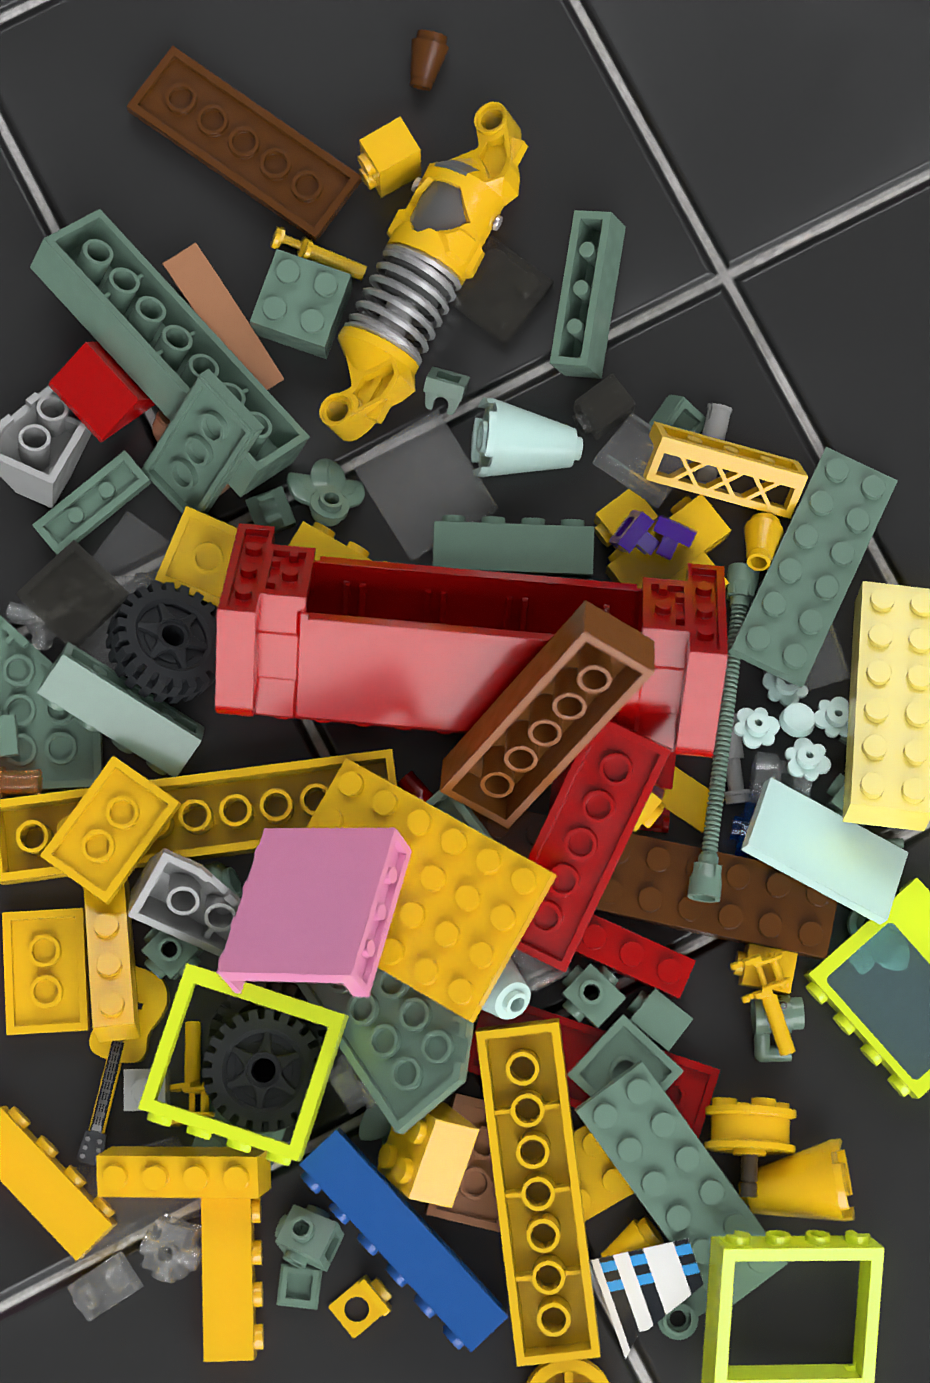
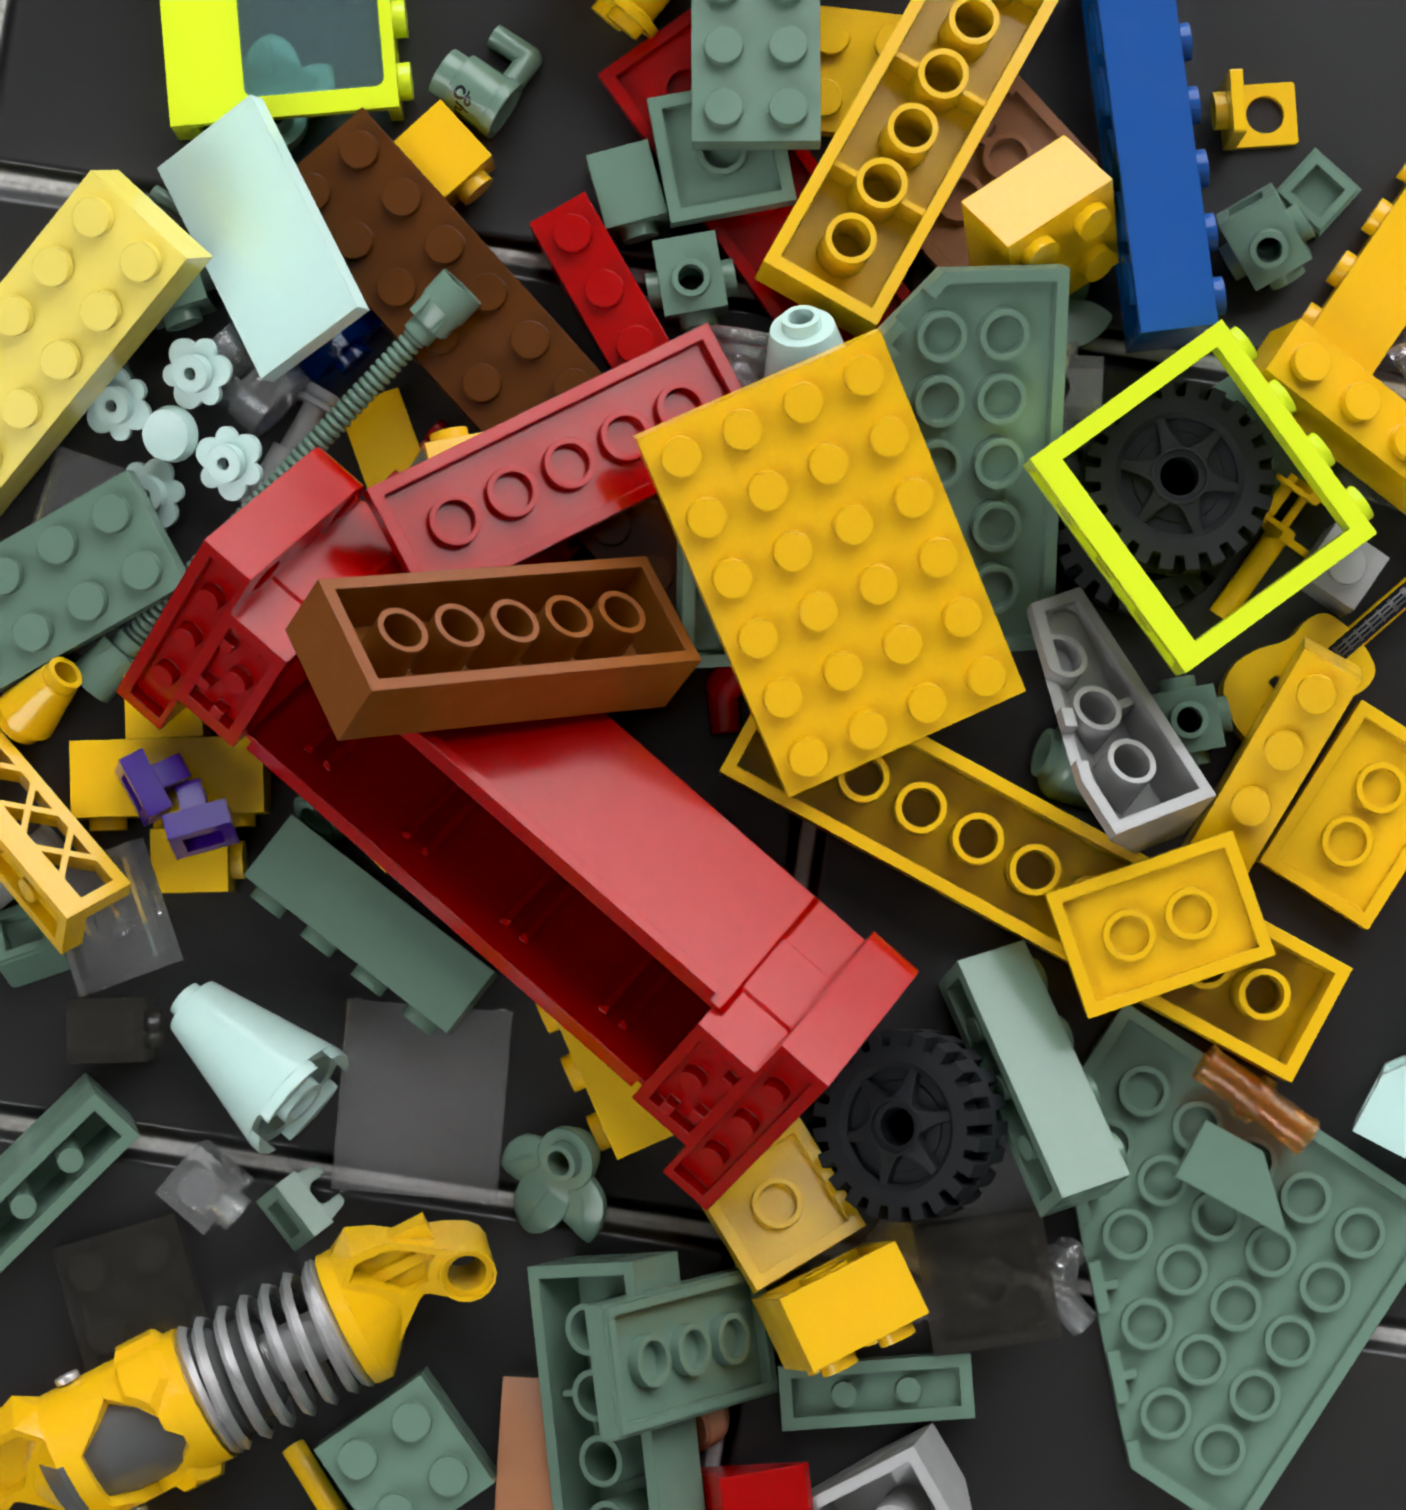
camera: 140 degrees left, 5 degrees up
(137, 526) = (841, 1307): none -> yellow brick
(271, 510) = (648, 1209): sand green tile -> none
(316, 907) = (972, 616): bright pink panel -> none
(497, 364) = (207, 1188): none -> clear brick
(769, 999) = (472, 112): yellow piece -> none

